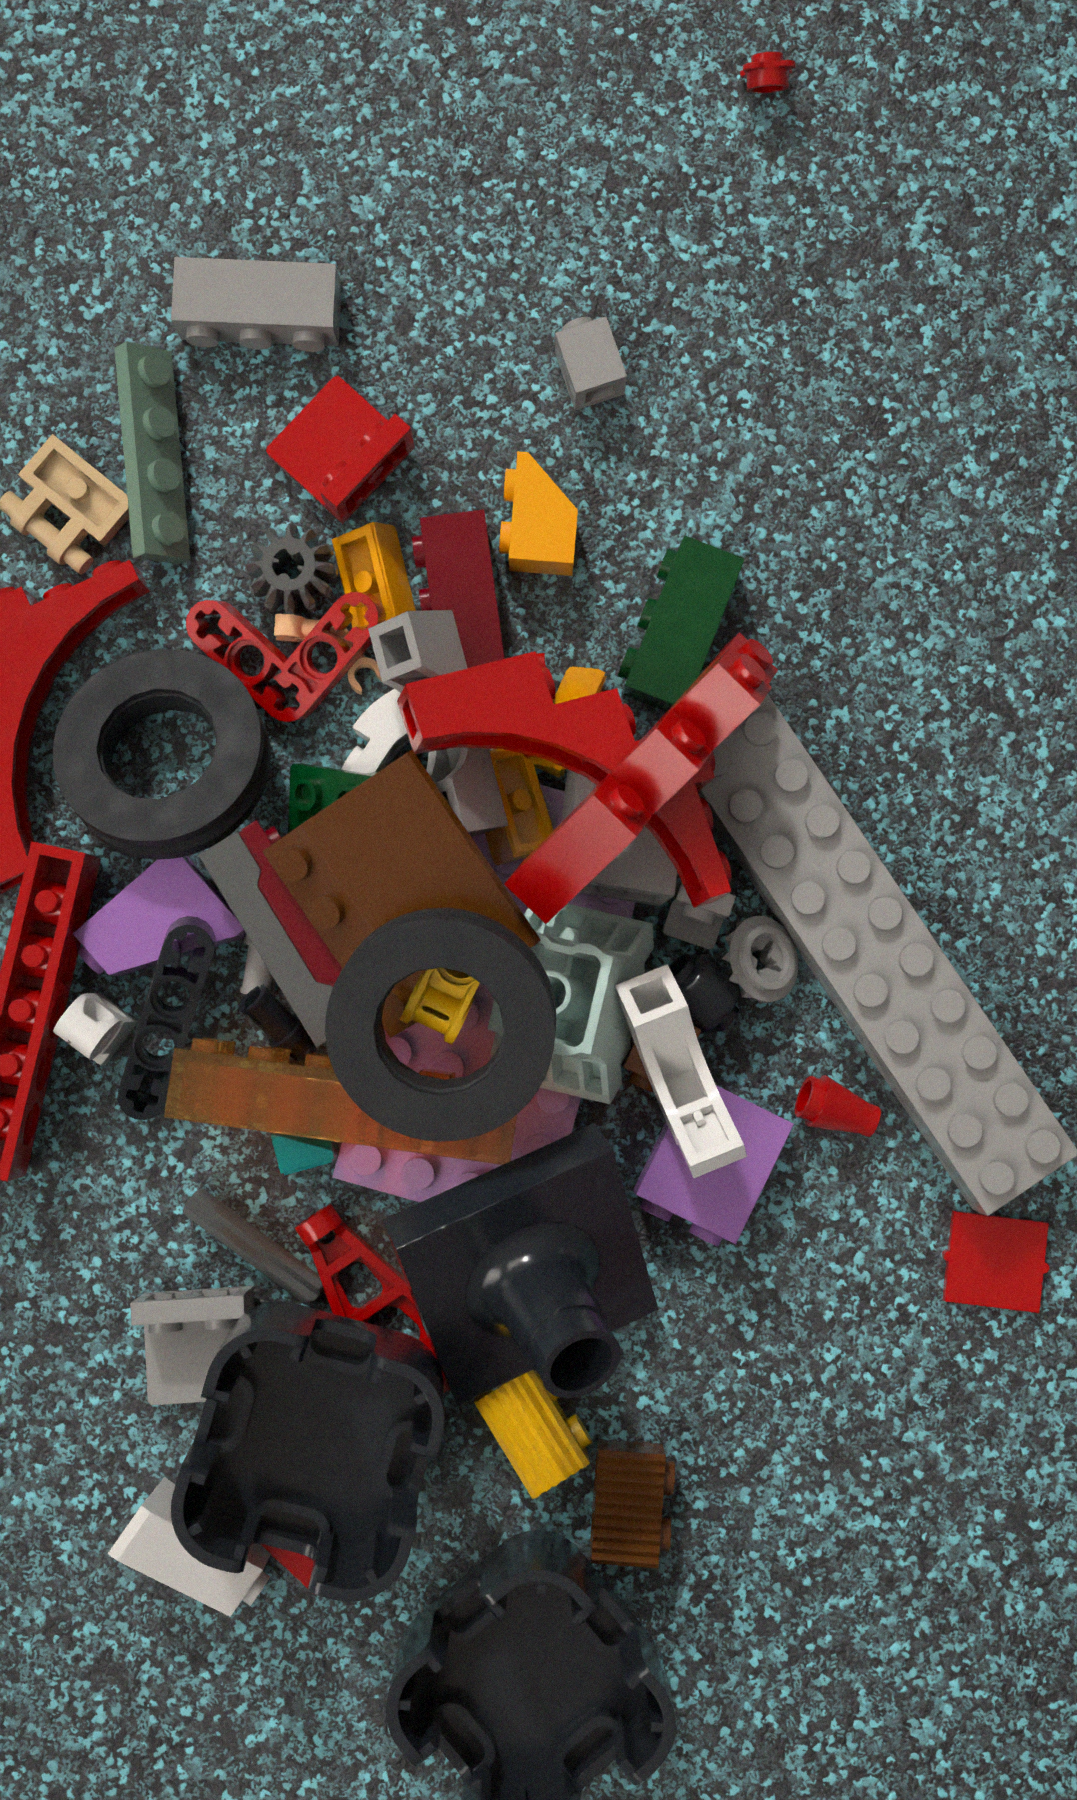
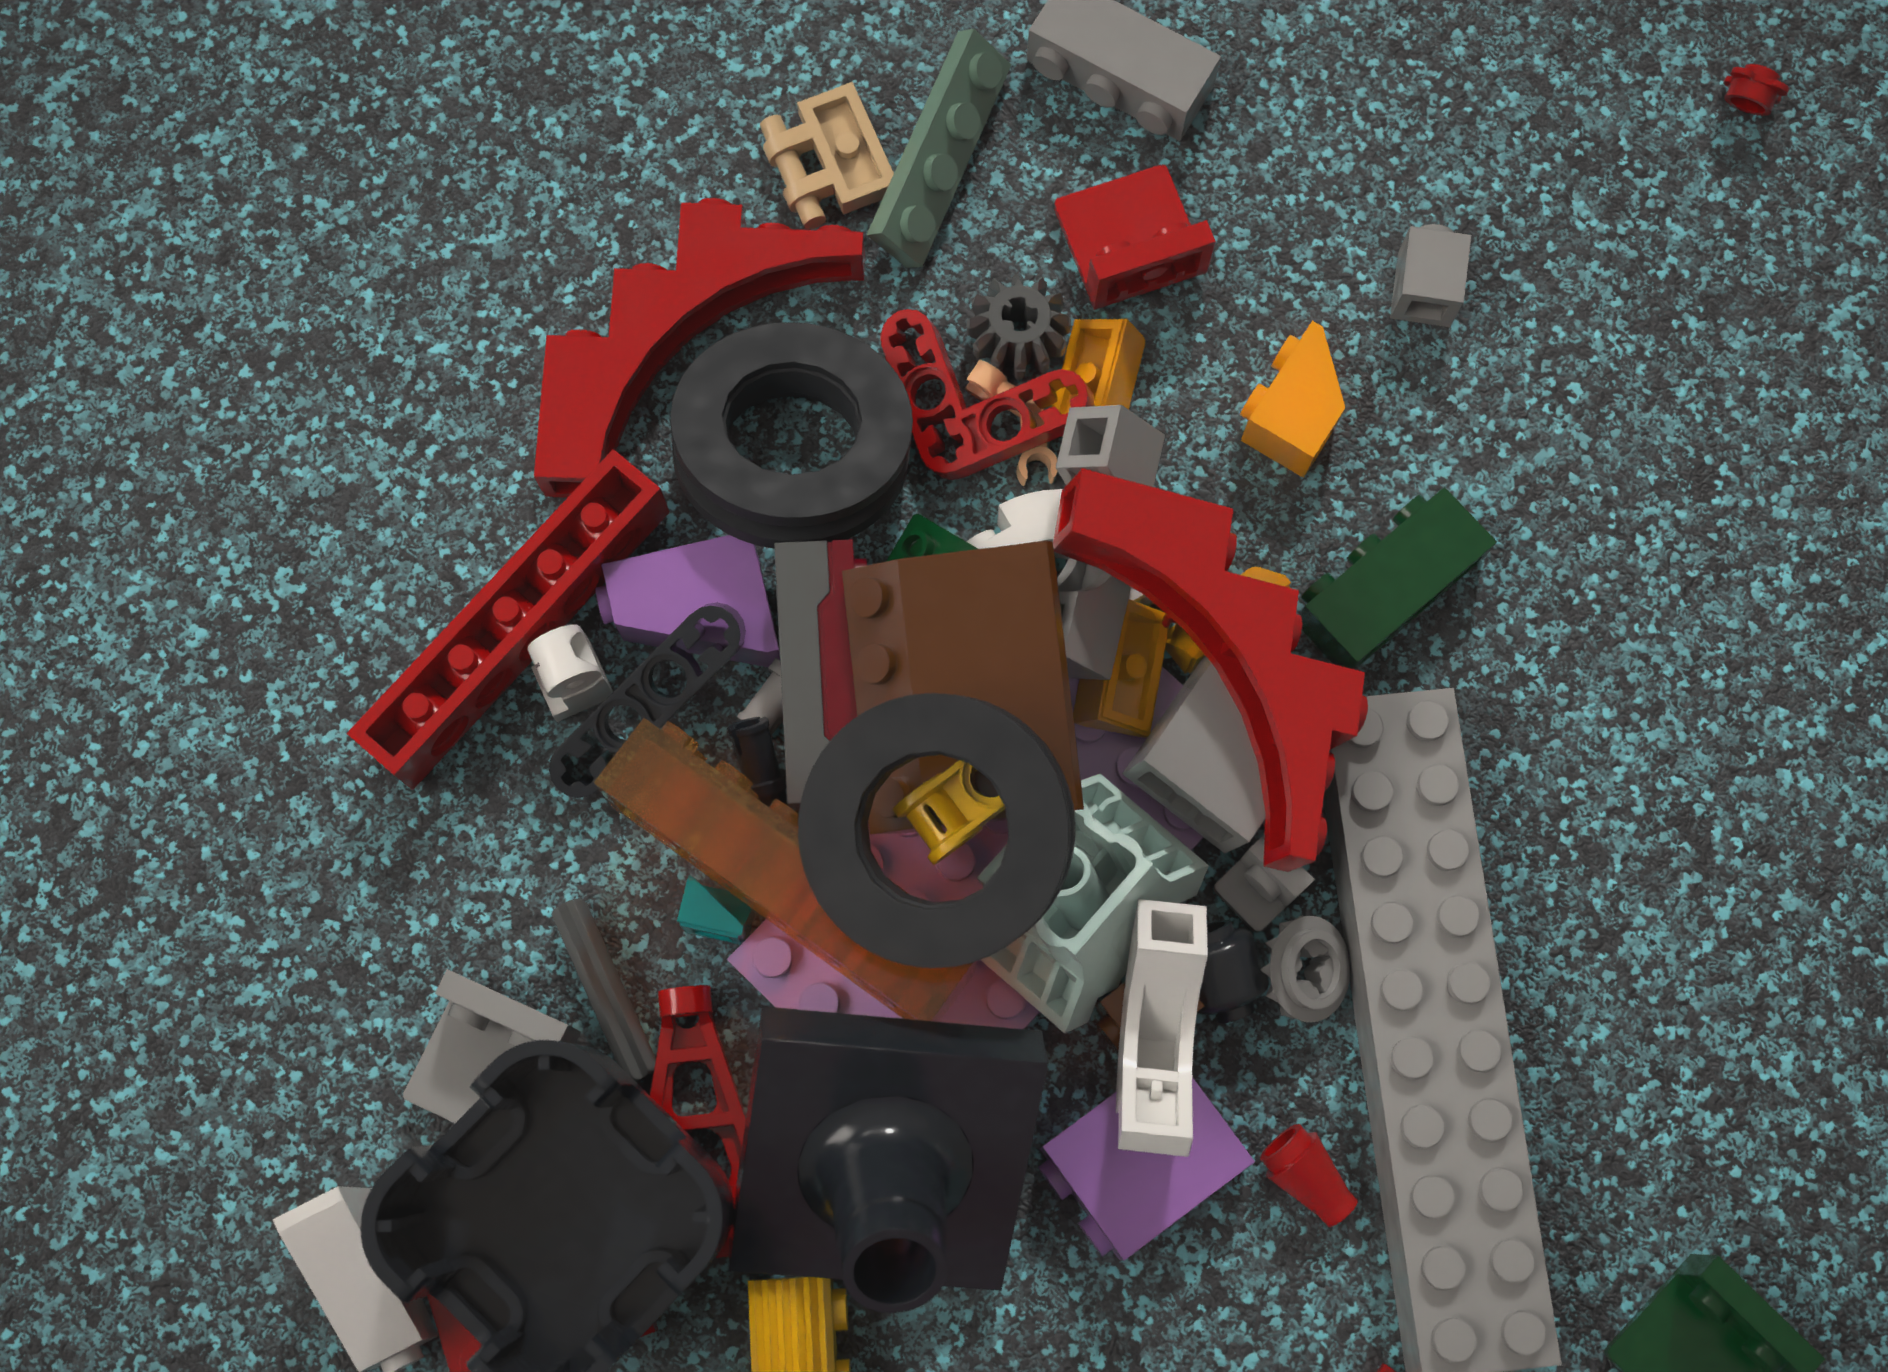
camera: 30 degrees right, 10 degrees down
(461, 580) = (1191, 409): dark red brick -> none
(645, 778) = (1278, 692): red arch -> none

